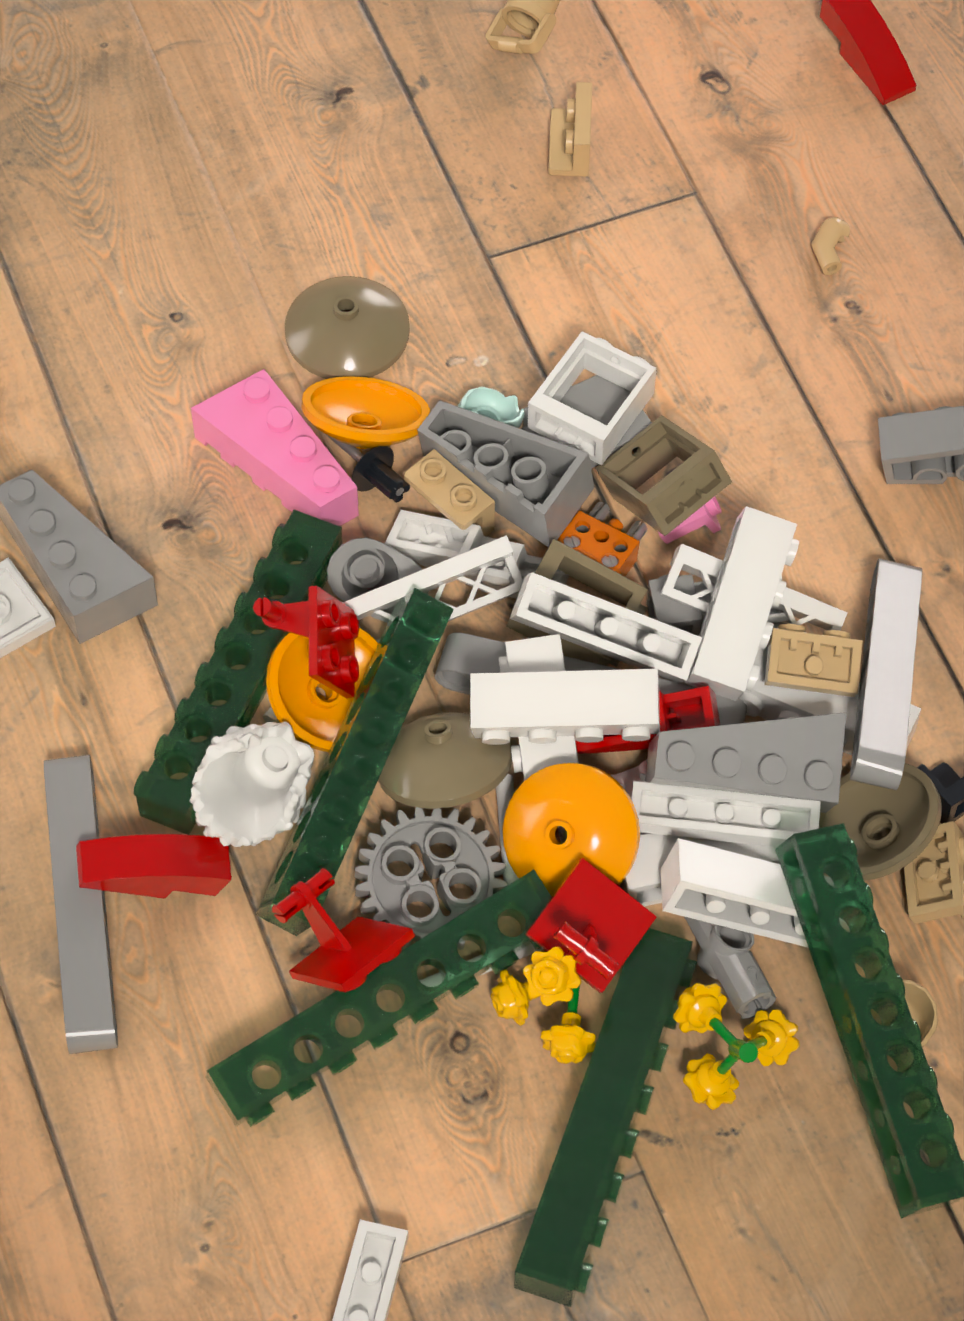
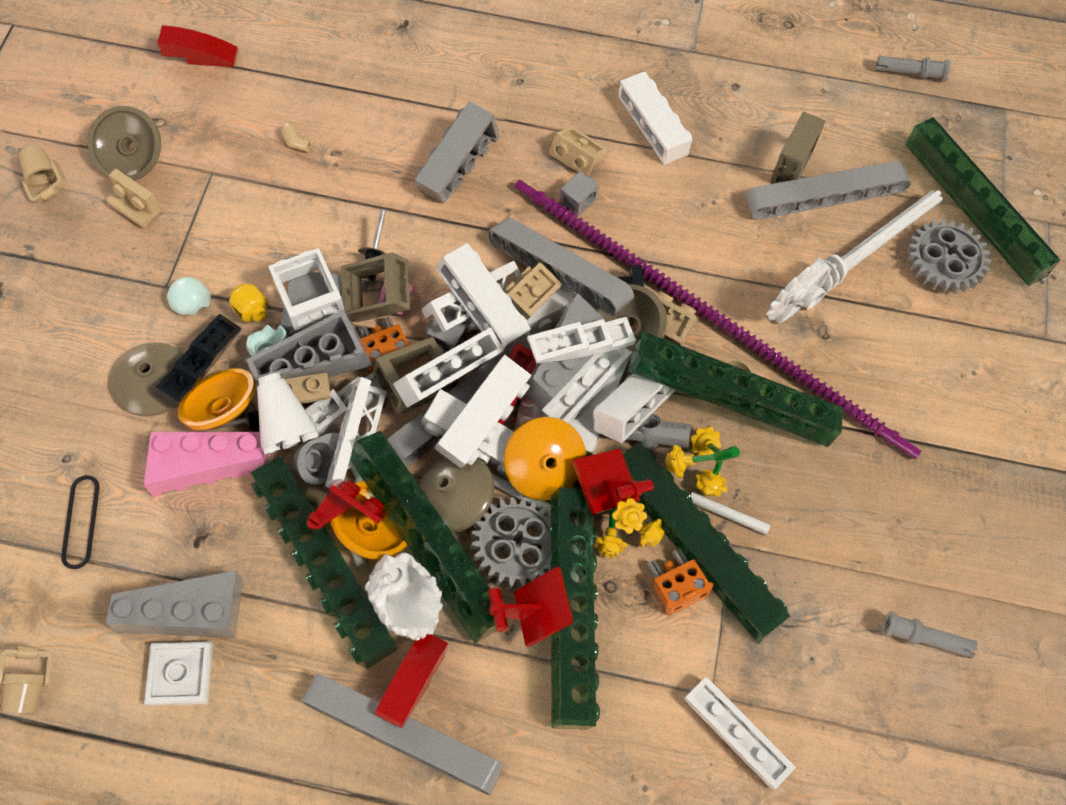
camera: 60 degrees left, 5 degrees up
(101, 372) = (68, 522): none -> black piece
(387, 486) = (281, 416): none -> white cone
(406, 356) = (197, 360): none -> black slope
(491, 287) = (188, 296): none -> light aqua hair
(523, 1126) = (679, 594): none -> orange piece
(530, 355) = (248, 303): none -> yellow head
(635, 55) = (113, 134): none -> dark tan dish
(685, 1137) = (730, 513): none -> white bar
(723, 446) = (374, 252): none -> piece
(764, 755) = (581, 340): none -> white slope

